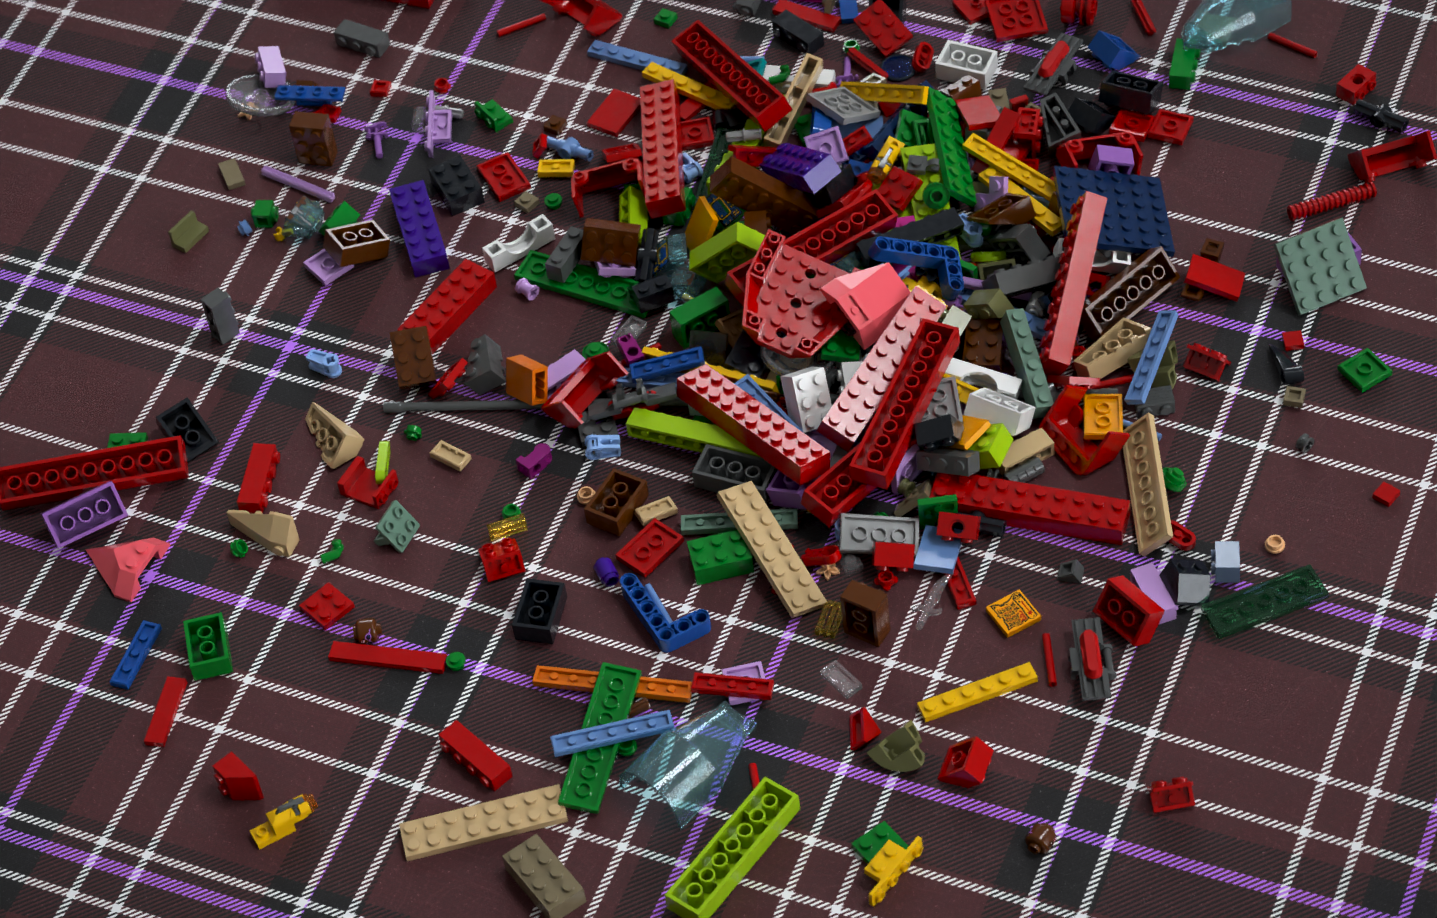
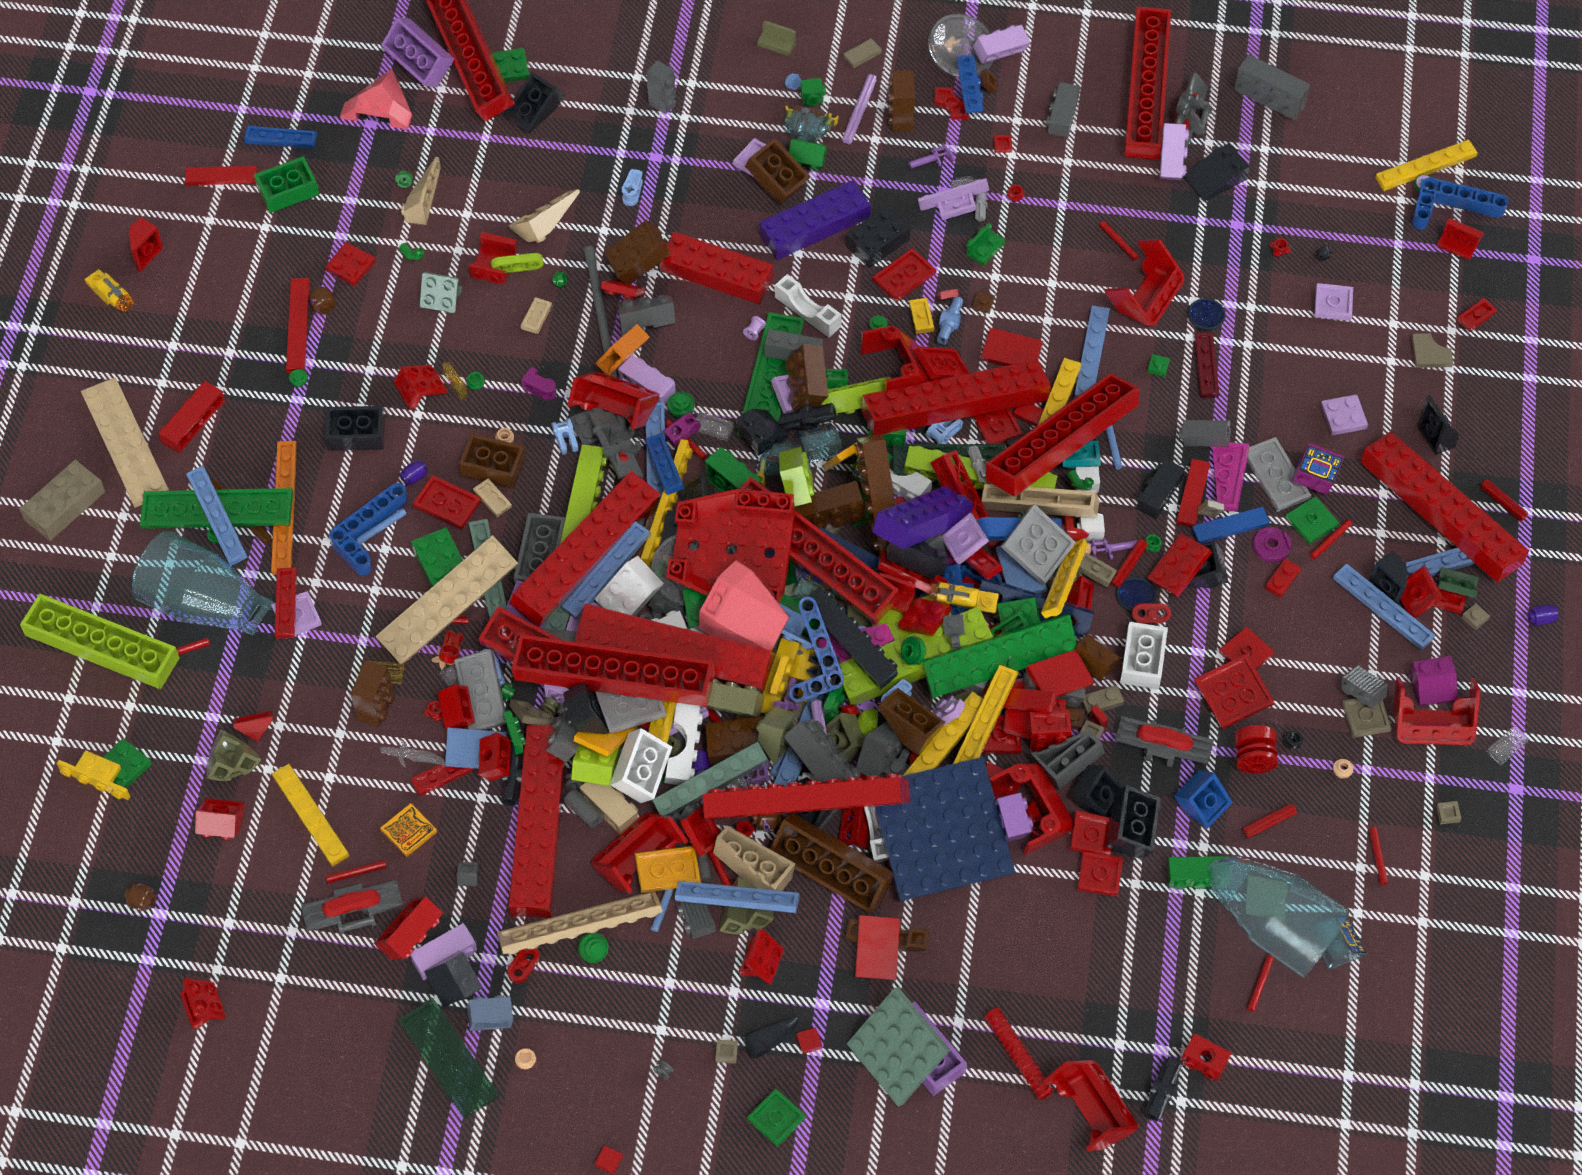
camera: 70 degrees right, 10 degrees up
(258, 478) = (485, 172): red brick -> none
(526, 202) = (873, 302): dark tan plate -> none
(841, 679) = (309, 694): clear plate -> none

